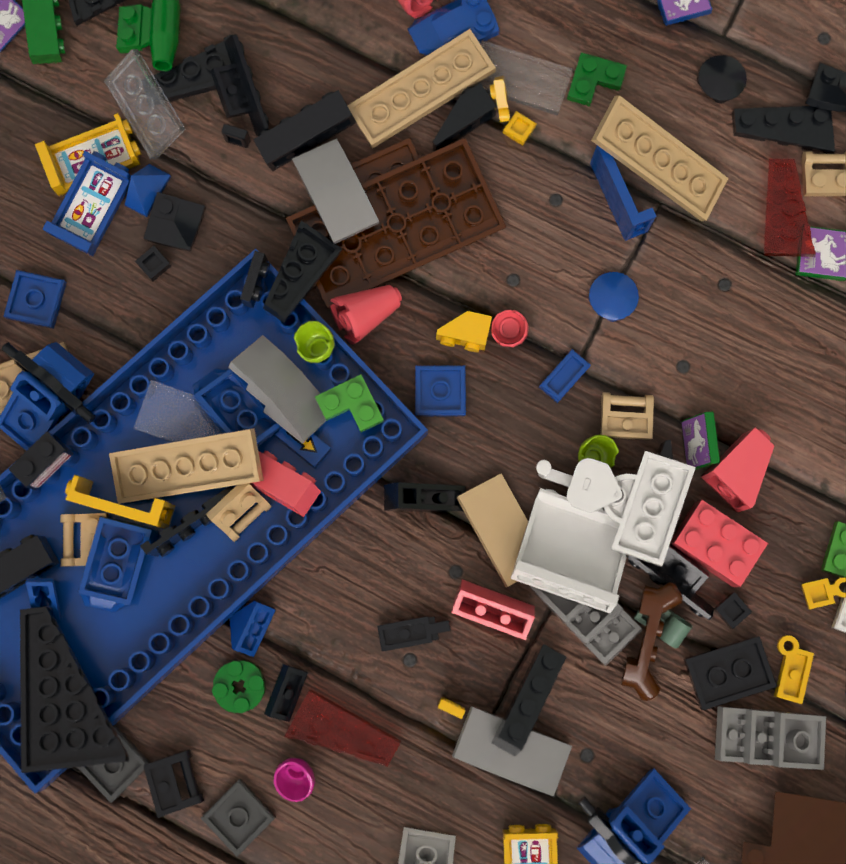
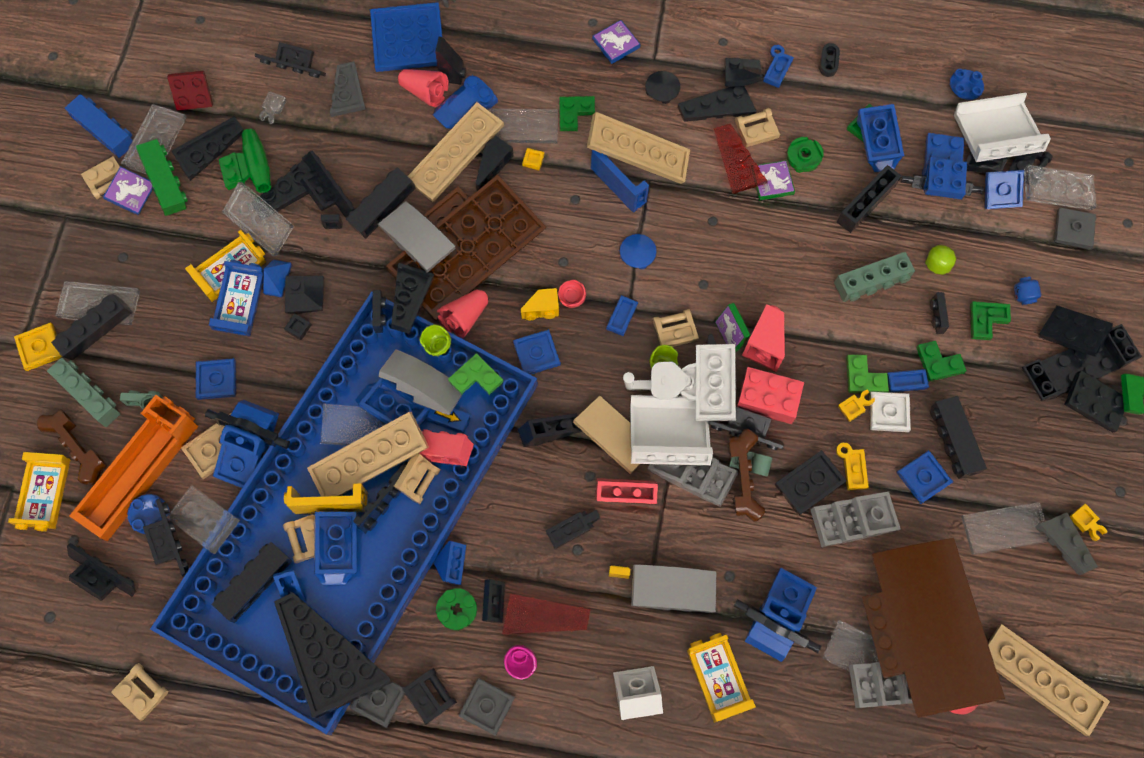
camera: 20 degrees left, 10 degrees down
(41, 461) = (259, 485): black brick -> none
(499, 92) = (512, 139): yellow plate -> none
(529, 700) = (673, 545): black brick -> none
(732, 610) = (796, 438): black plate -> none

